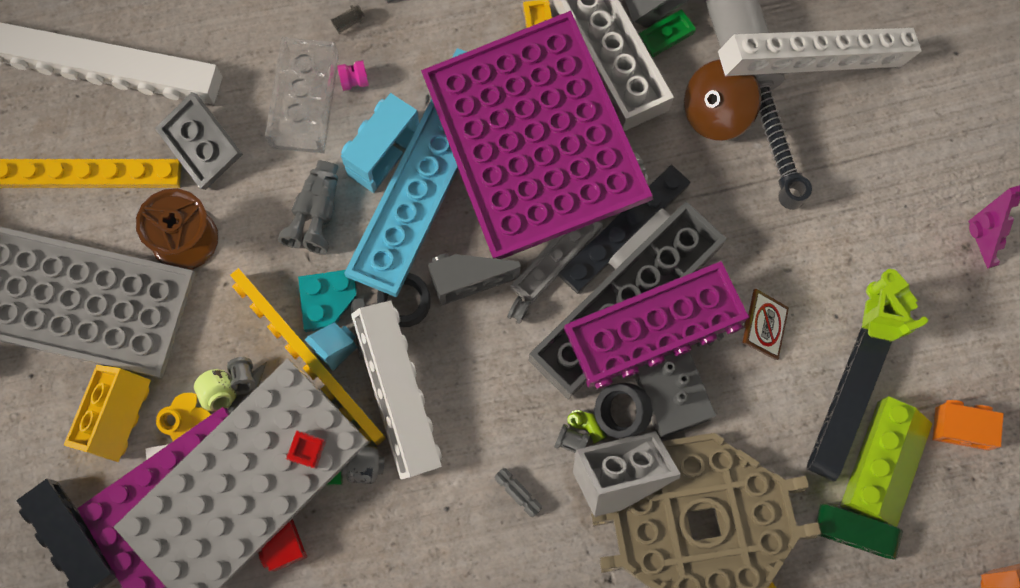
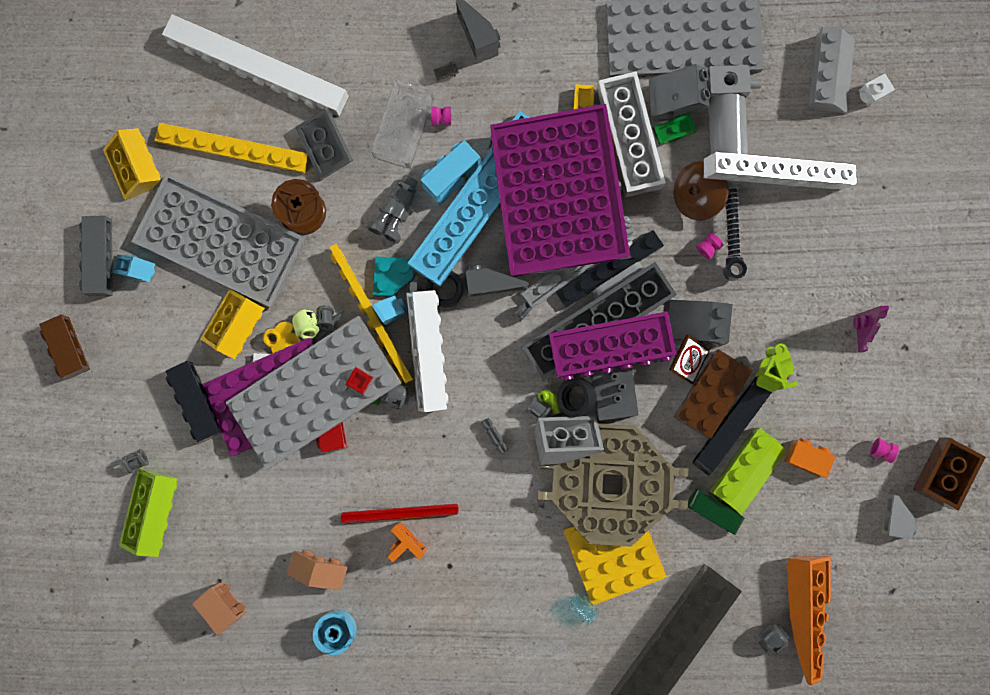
camera: 20 degrees right, 10 degrees up
(753, 167) = (709, 245): none -> dark pink wheel
(772, 266) = (701, 320): none -> dark grey slope
(810, 365) = (713, 393): none -> reddish brown brick

